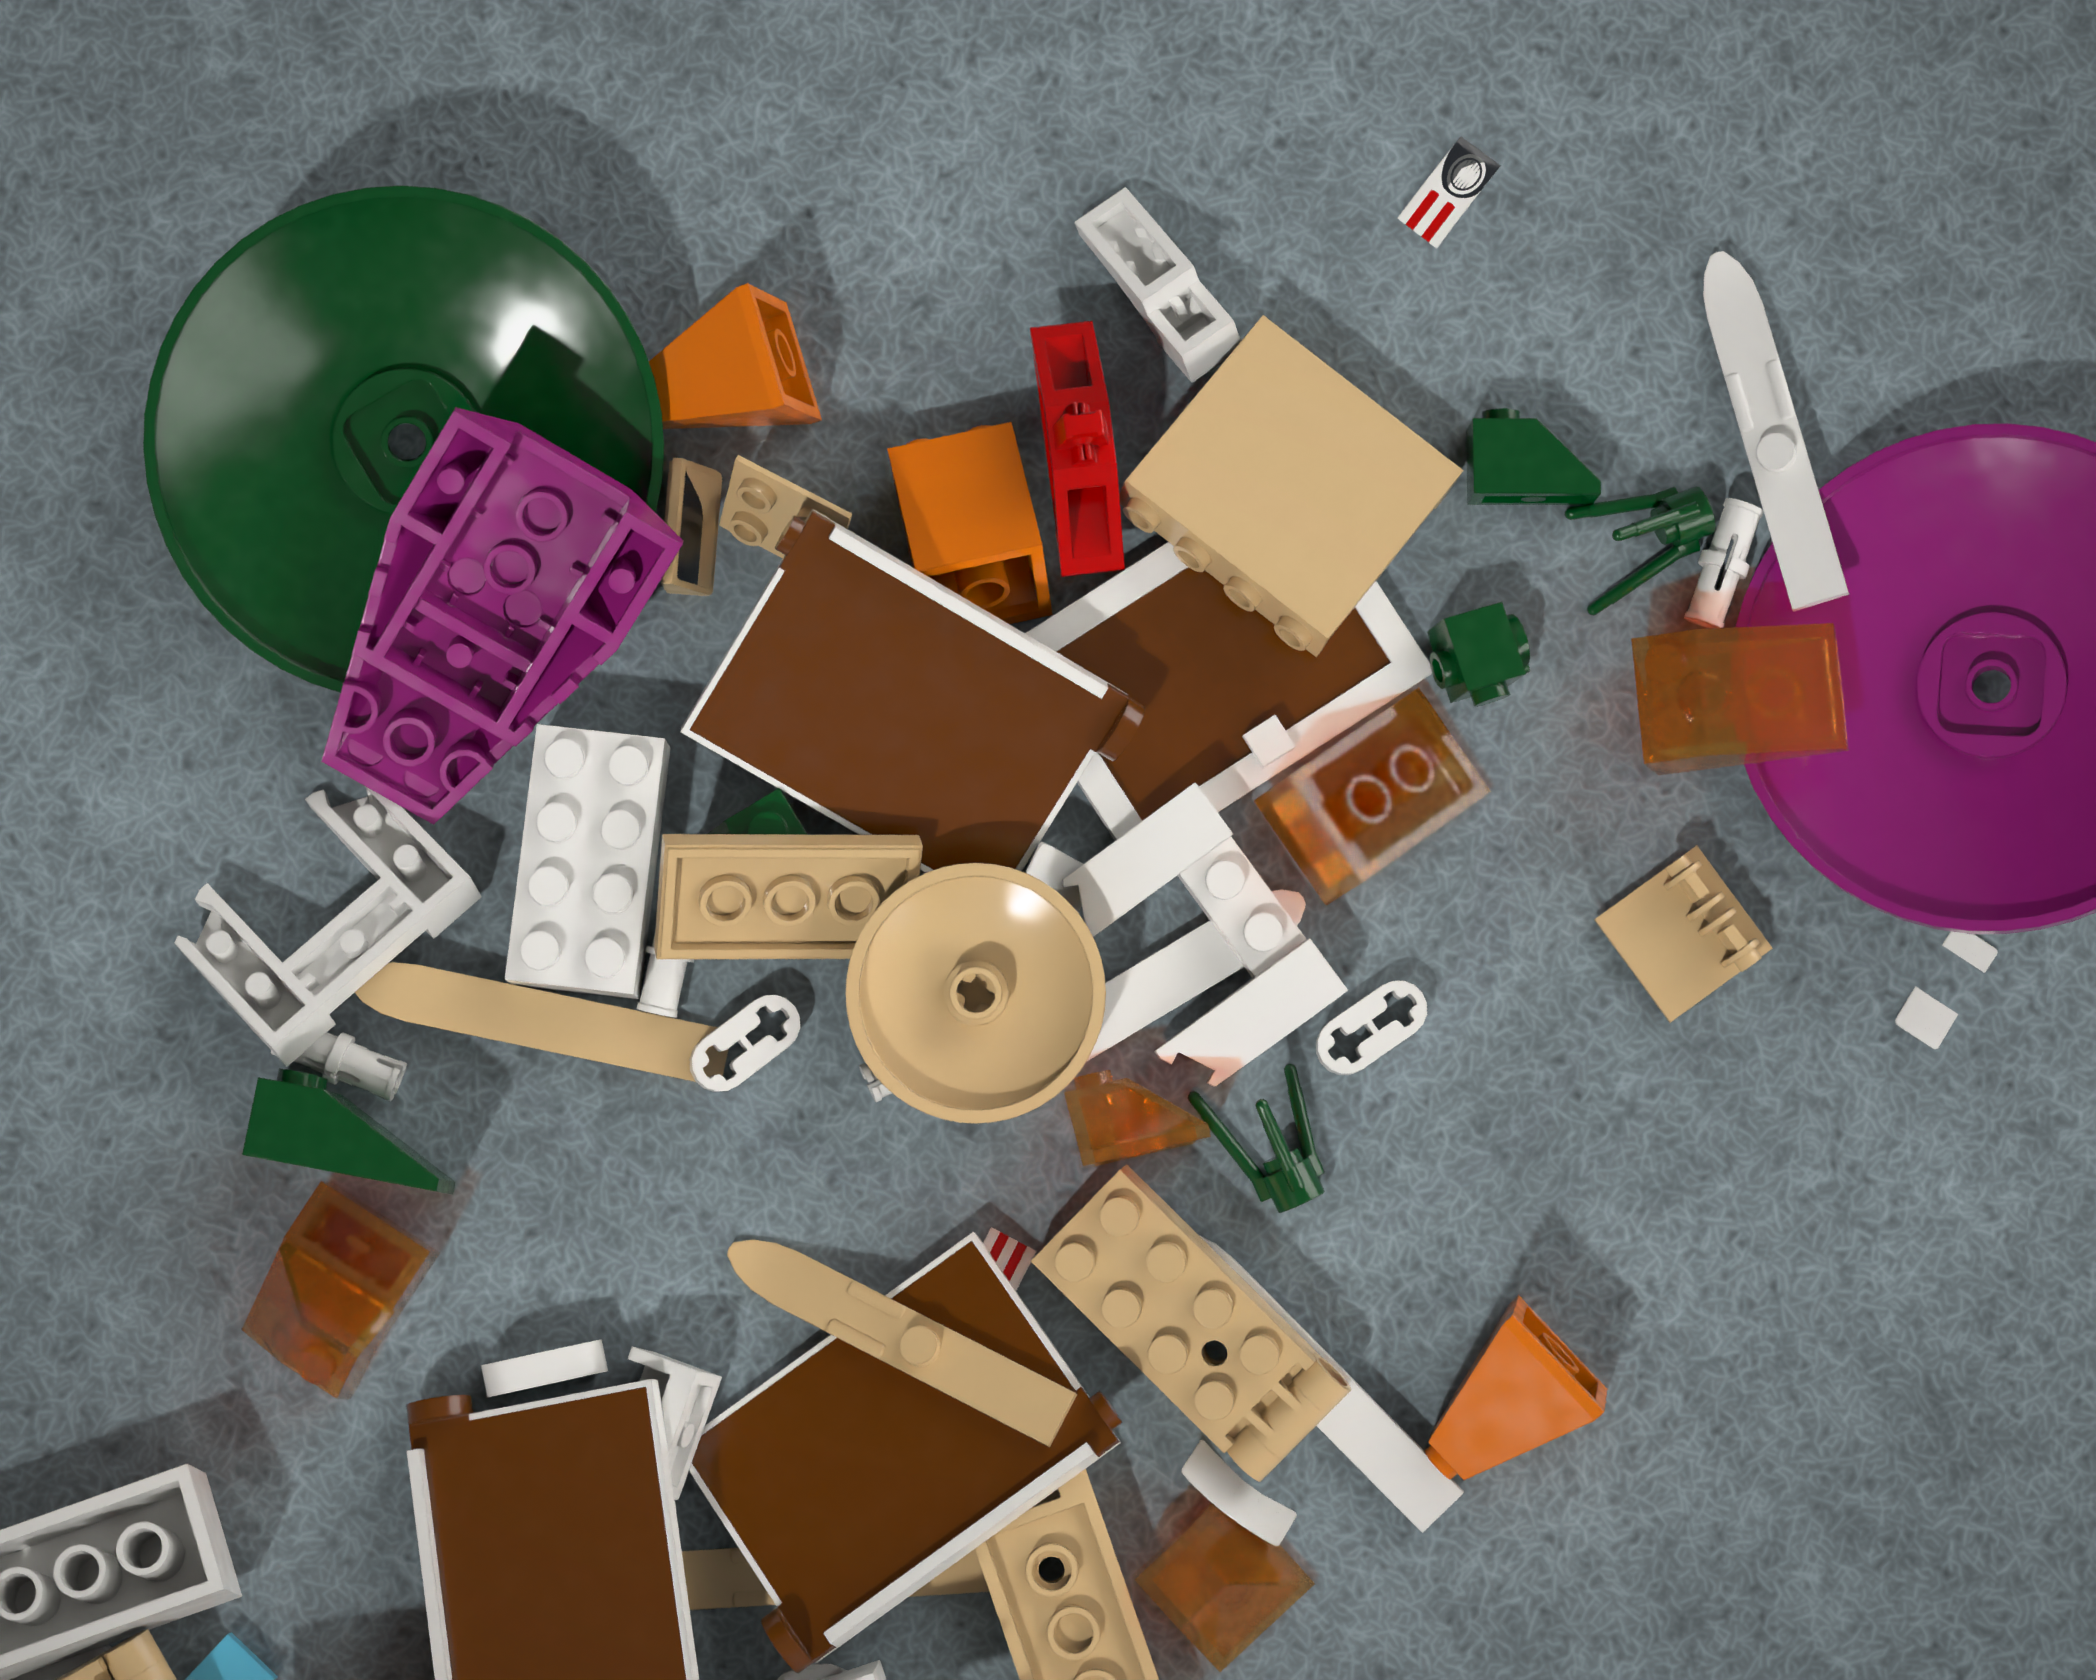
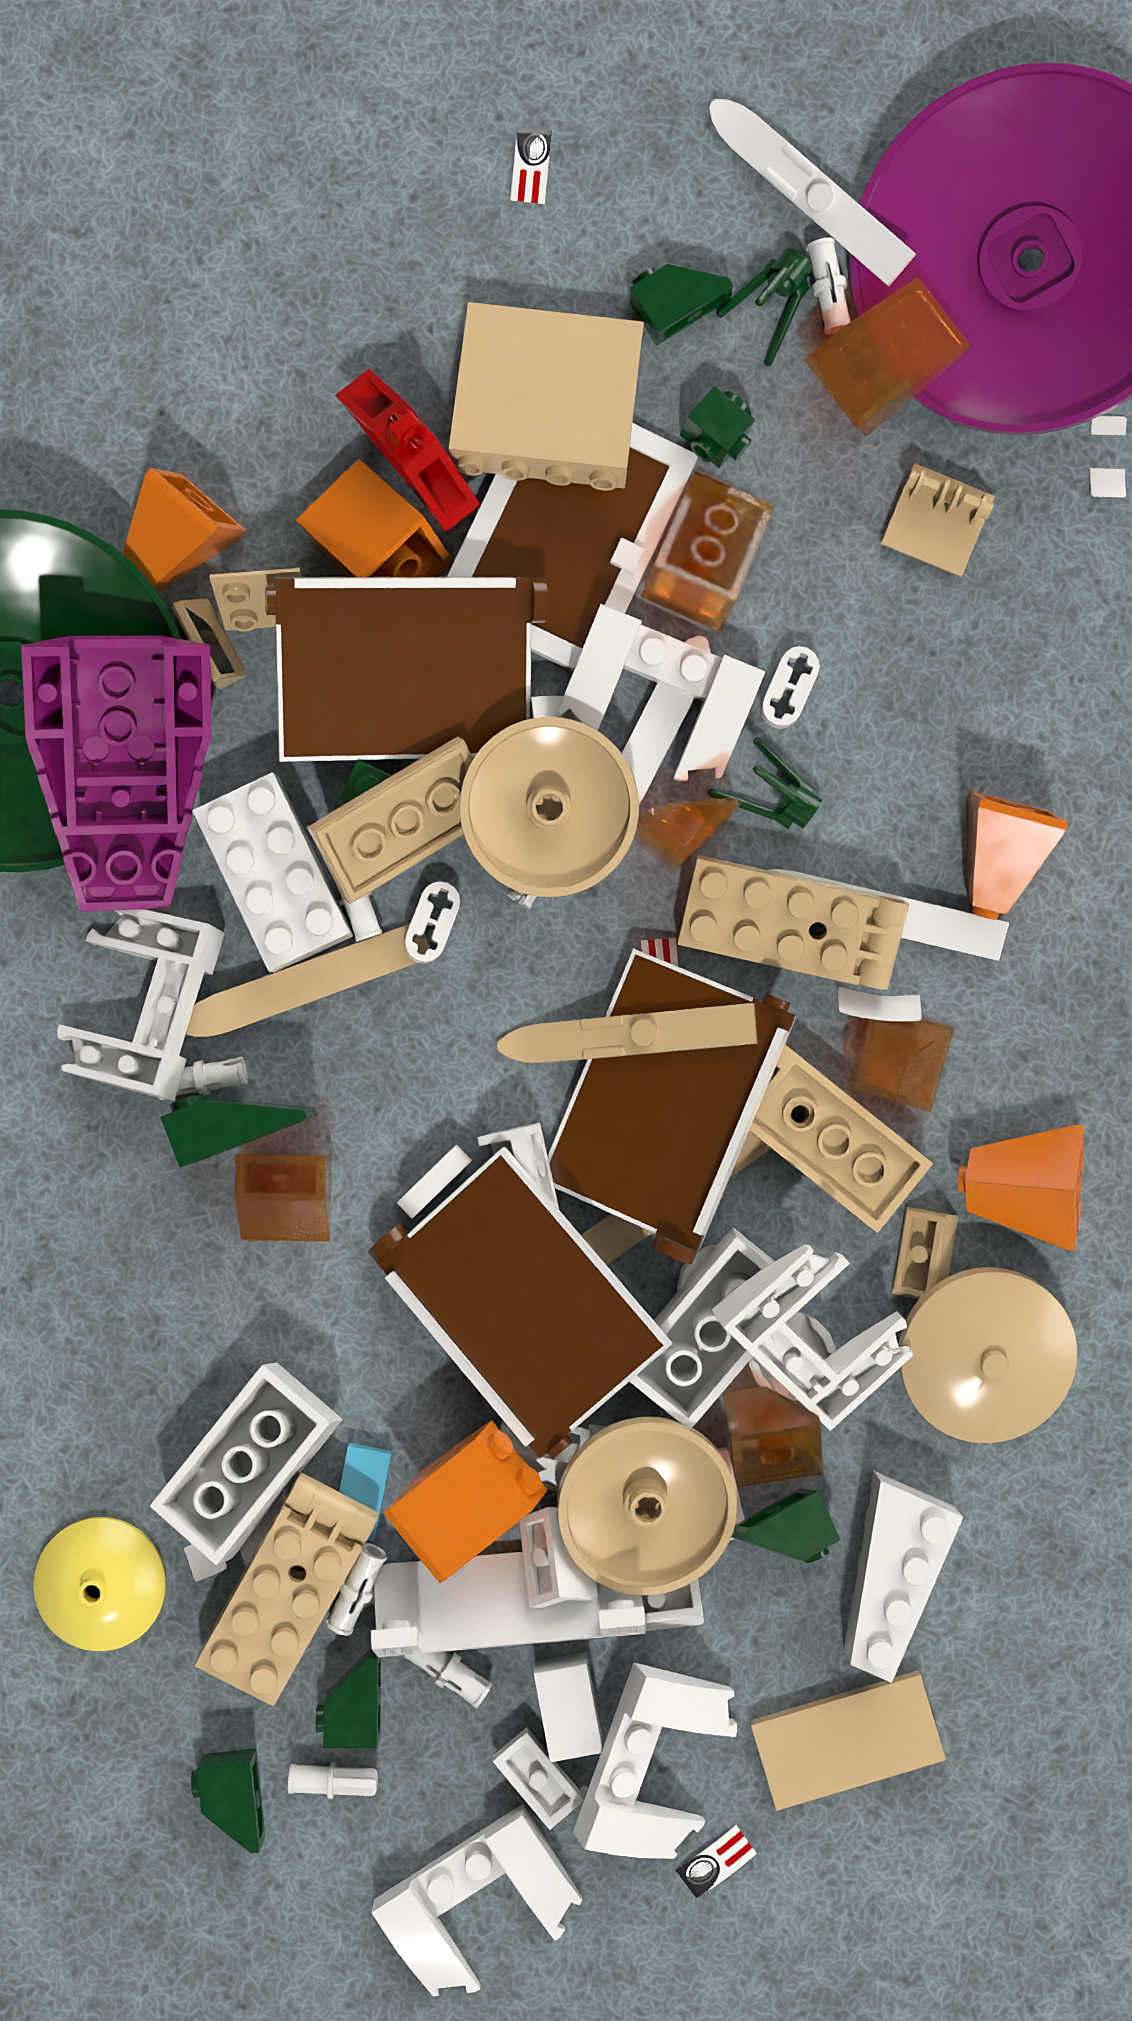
camera: 25 degrees left, 5 degrees up
(317, 1322) = (285, 1237): clear orange slope -> none
(1160, 284) = (395, 322): white slope -> none

